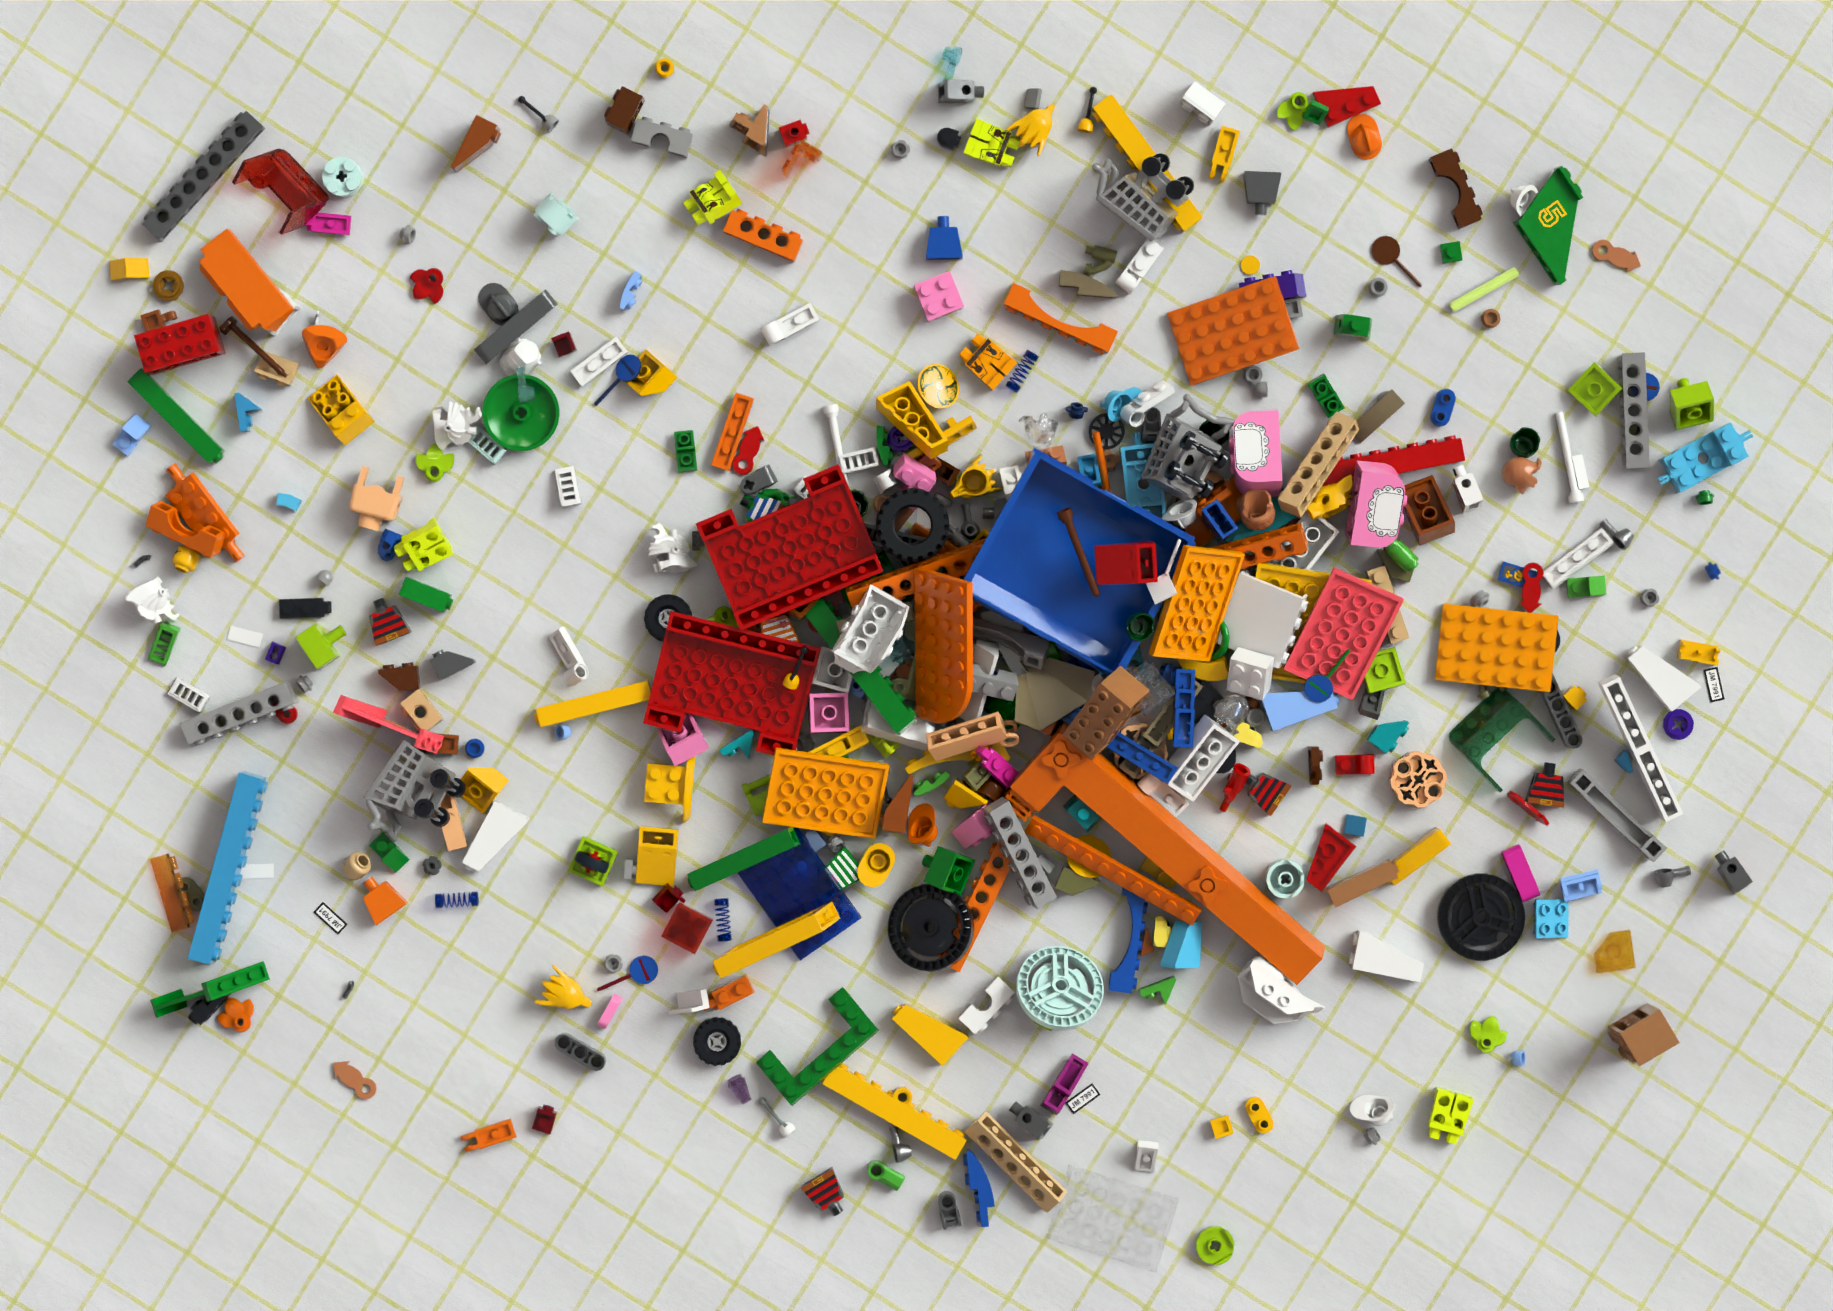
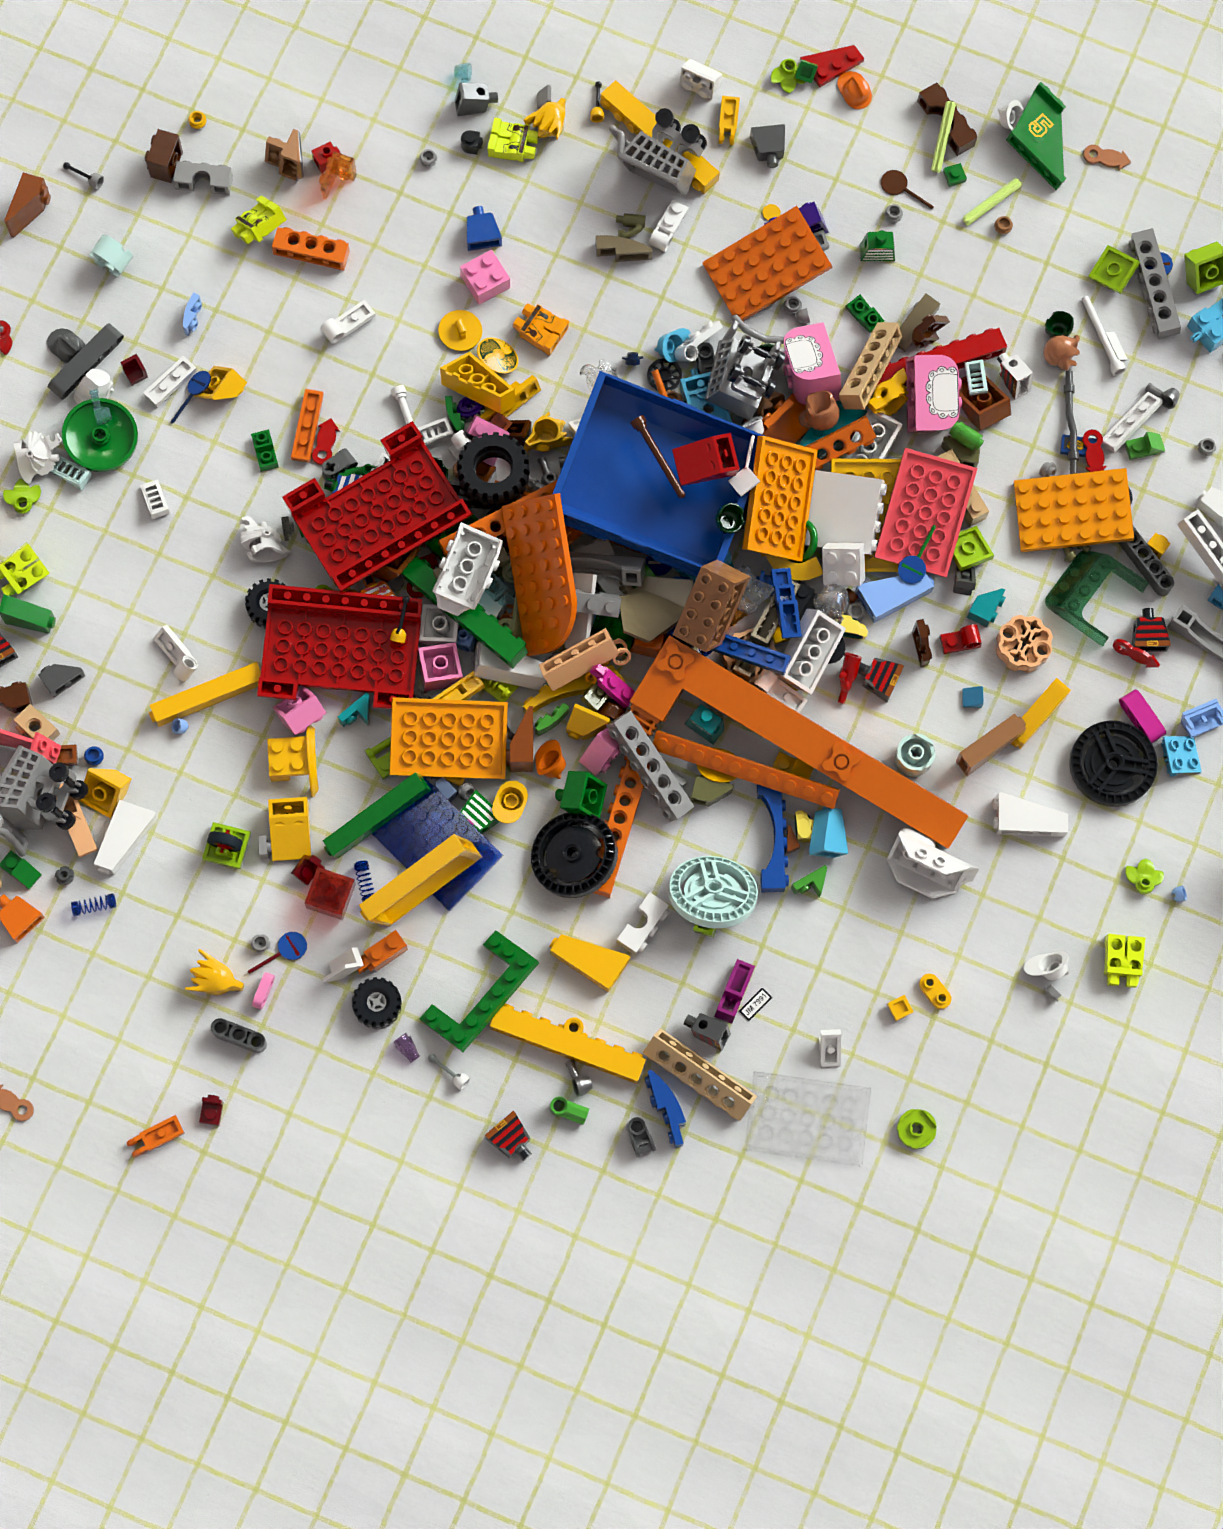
camera: 15 degrees left, 15 degrees down
(904, 349) = (460, 330): none -> yellow shield
(1015, 387) = (571, 347): clear blue piece -> none
(1098, 337) = (565, 272): orange arch -> none
(1219, 521) = (786, 426): blue torso -> none
(1329, 857) = (954, 730): red wing -> none
(1388, 429) = (927, 330): none -> reddish brown slope
(1426, 474) = (976, 366): none -> light aqua slope
(1443, 407) = (975, 307): blue plate -> none
(1446, 211) = (943, 136): none -> yellowish green axle
(1509, 587) = (1069, 390): none -> dark grey bar

